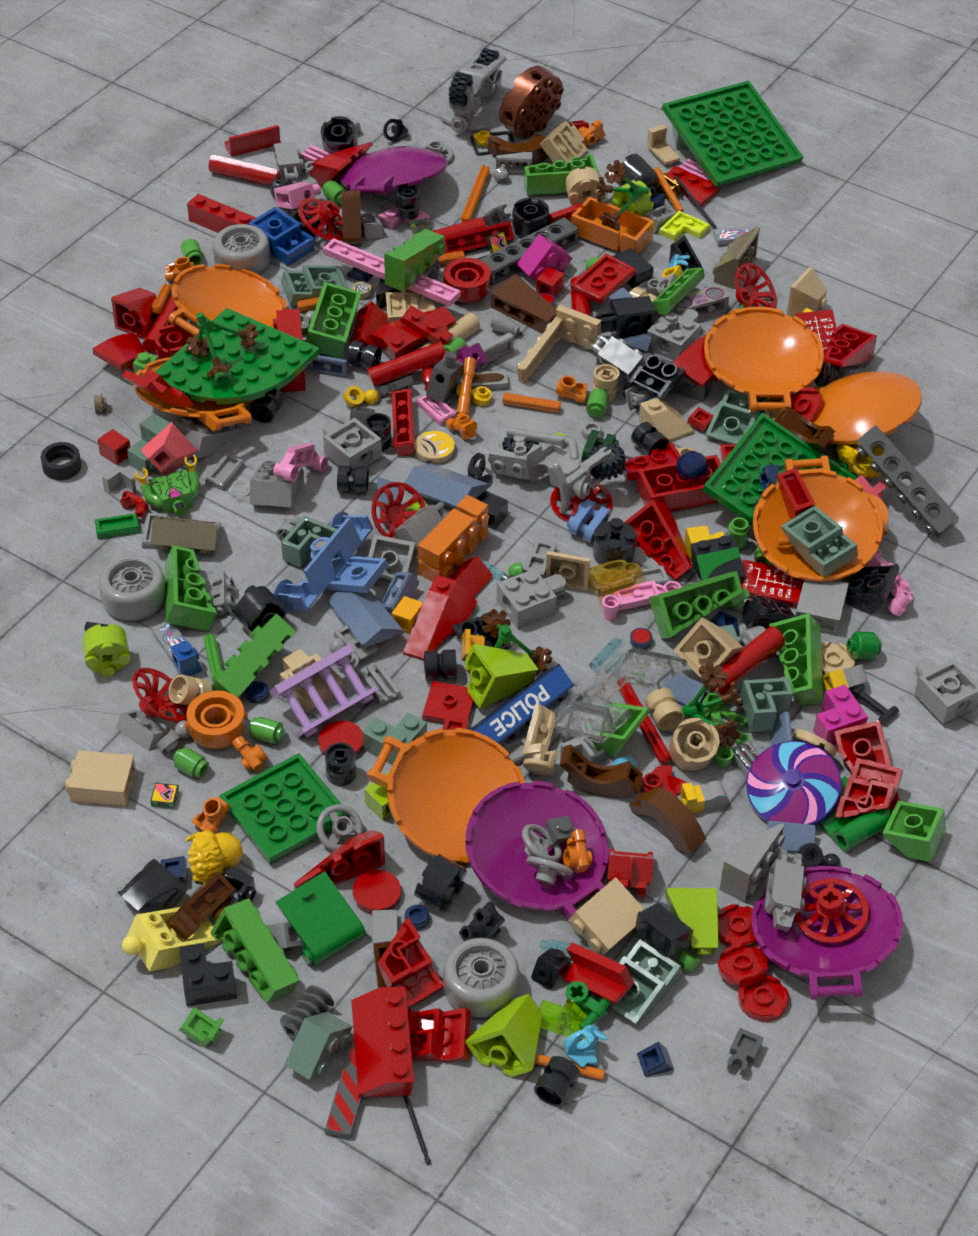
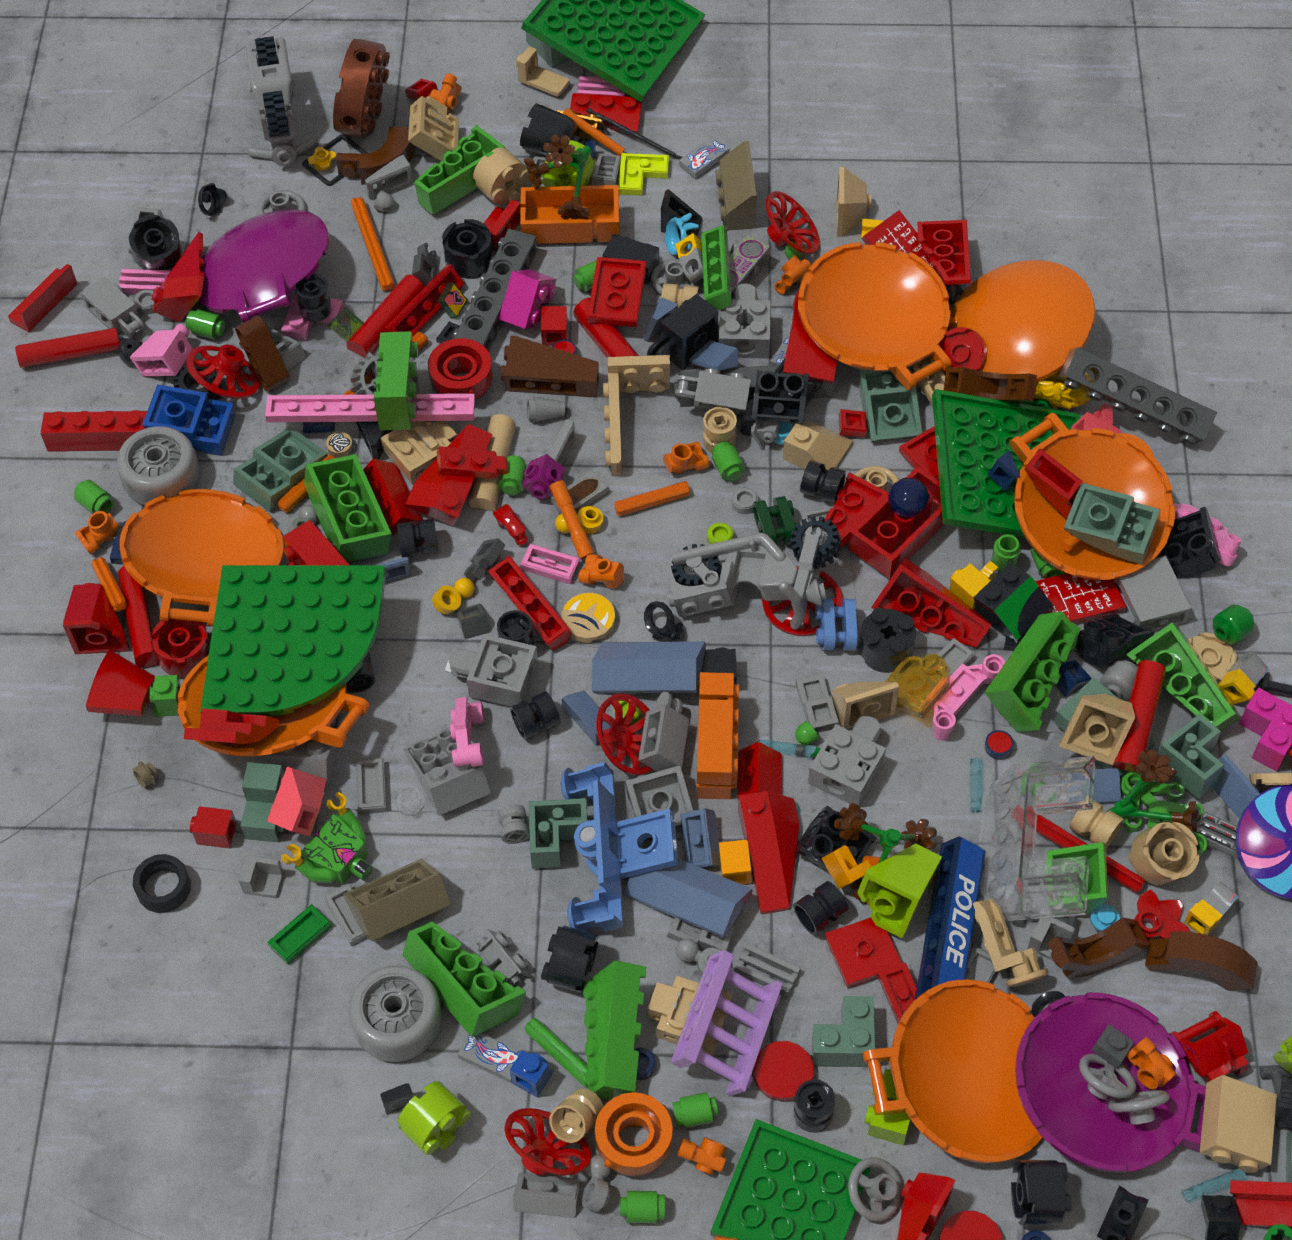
camera: 30 degrees left, 10 degrees up
(130, 500) = (292, 888): red piece -> none
(202, 344) = (240, 641): reddish brown plant -> none
(406, 364) = (480, 523): red brick -> none
(445, 378) = (541, 510): dark grey torso -> none

